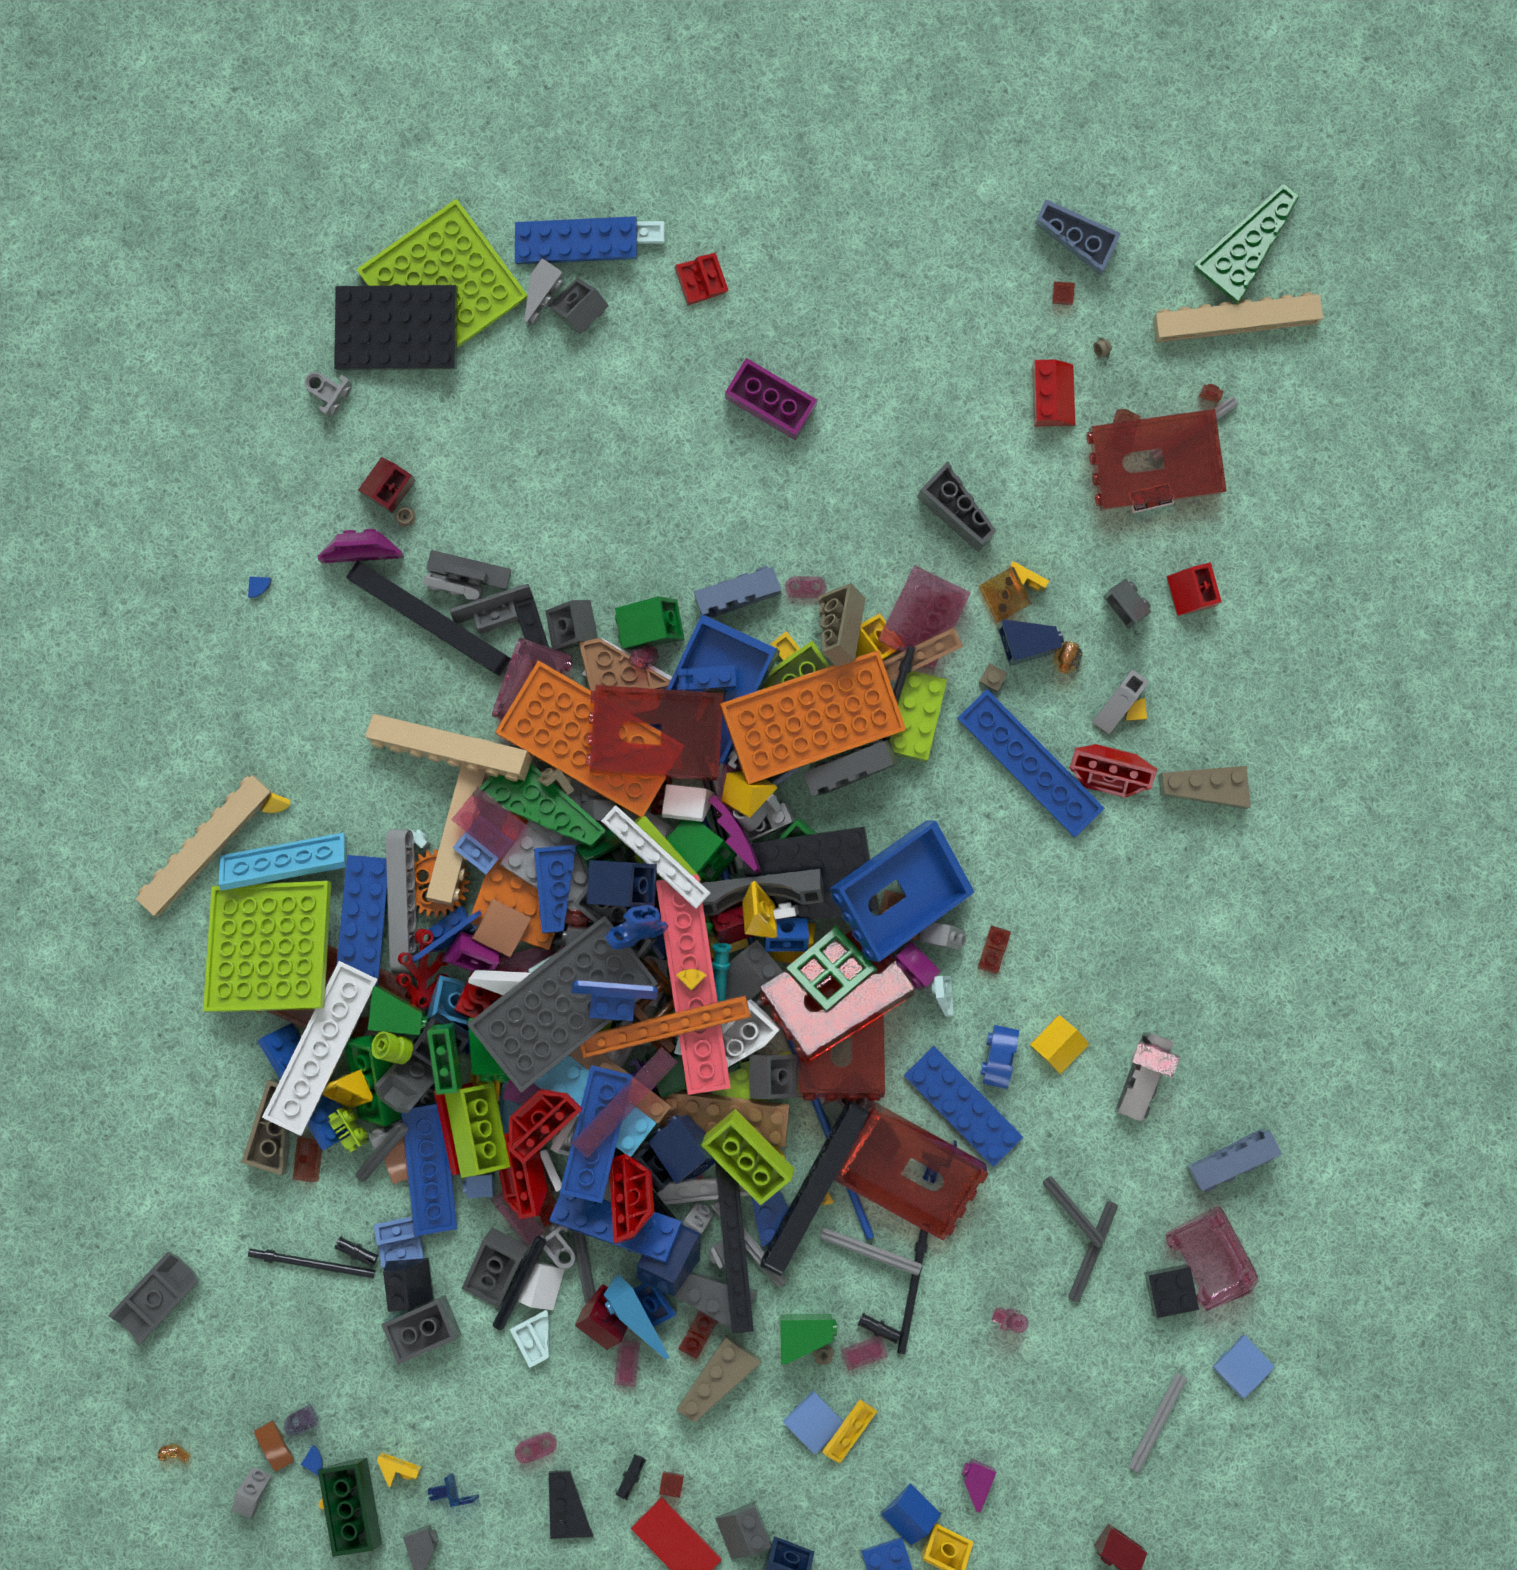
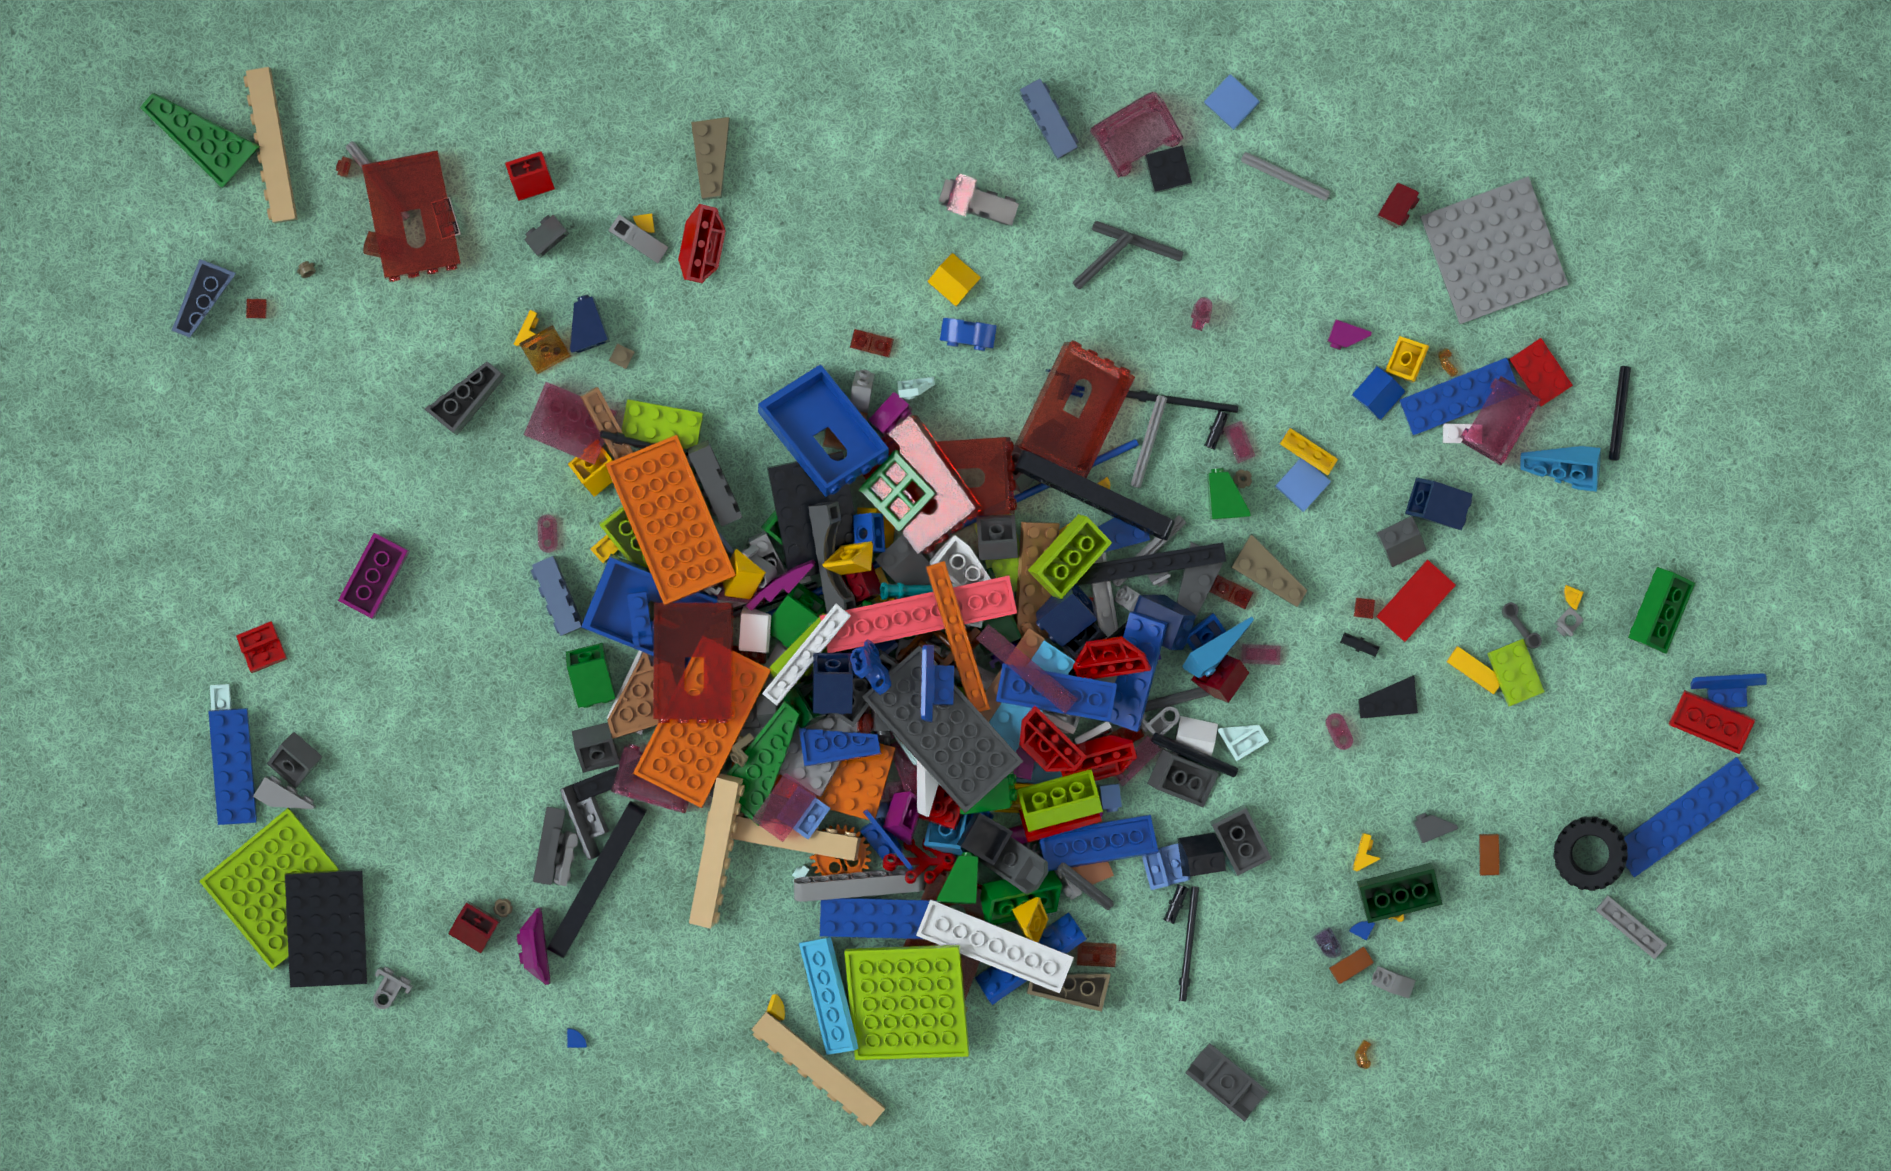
camera: 90 degrees left, 5 degrees up
(358, 1134) = (1071, 908): lime hinge -> none
(392, 1047) = (990, 880): lime wheel -> none
(444, 1058) = (997, 831): green brick -> none
(450, 1491) = (1381, 805): clear blue bracket -> none
(501, 928) = (878, 791): nougat slope -> none
(644, 657) = (622, 677): clear pink plate -> none
(691, 977) = (912, 616): yellow tile -> none
(785, 910) = (847, 535): white plate -> none
(841, 623) = (582, 499): dark tan wedge -> none
(963, 1106) = (1014, 364): blue plate -> none
(1030, 763) = (699, 318): blue plate -> none
(1053, 393) = (352, 313): red slope -> none
(1068, 657) = (599, 288): clear orange head -> none

